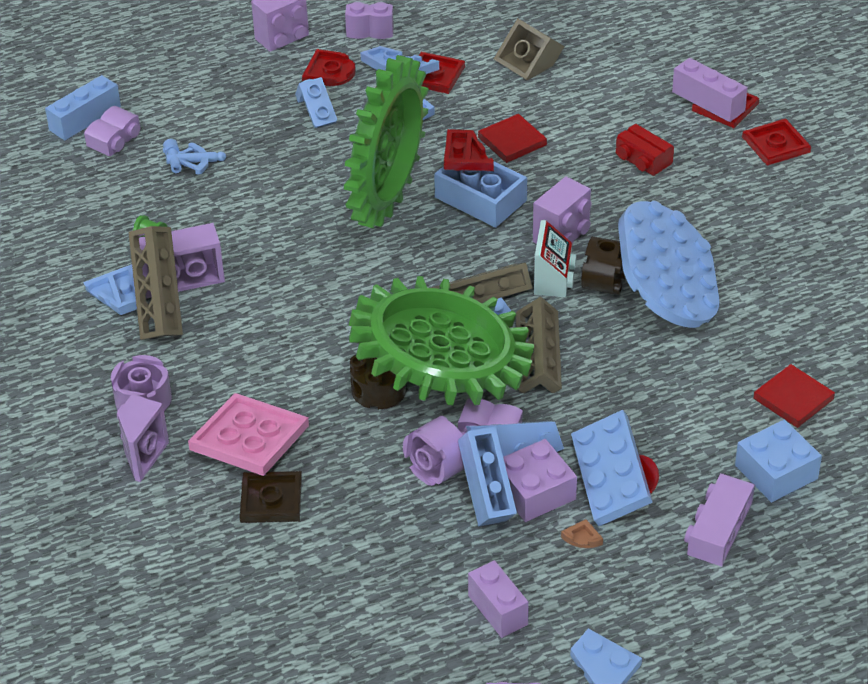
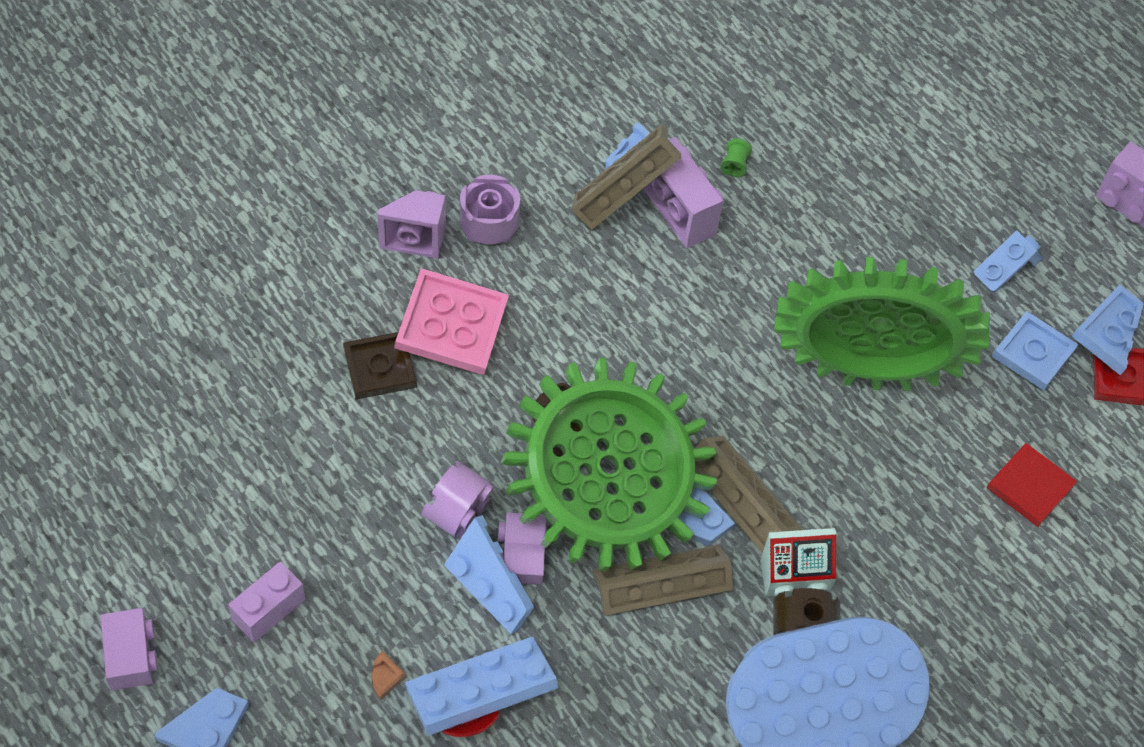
camera: 70 degrees right, 15 degrees up
(82, 107) = (908, 44): light blue brick -> none
(112, 131) = (882, 81): lavender brick -> none
(177, 158) = (862, 153): light blue piece -> none
(330, 66) = (1085, 262): red tile -> none
(465, 152) = (938, 424): red wing -> none
(482, 194) = (909, 462): light blue brick -> none
(487, 476) = (417, 552): light blue brick -> none
(539, 480) = (444, 608): lavender brick -> none
(565, 208) = (881, 558): lavender brick -> none
(644, 149) = (1058, 639): red brick -> none

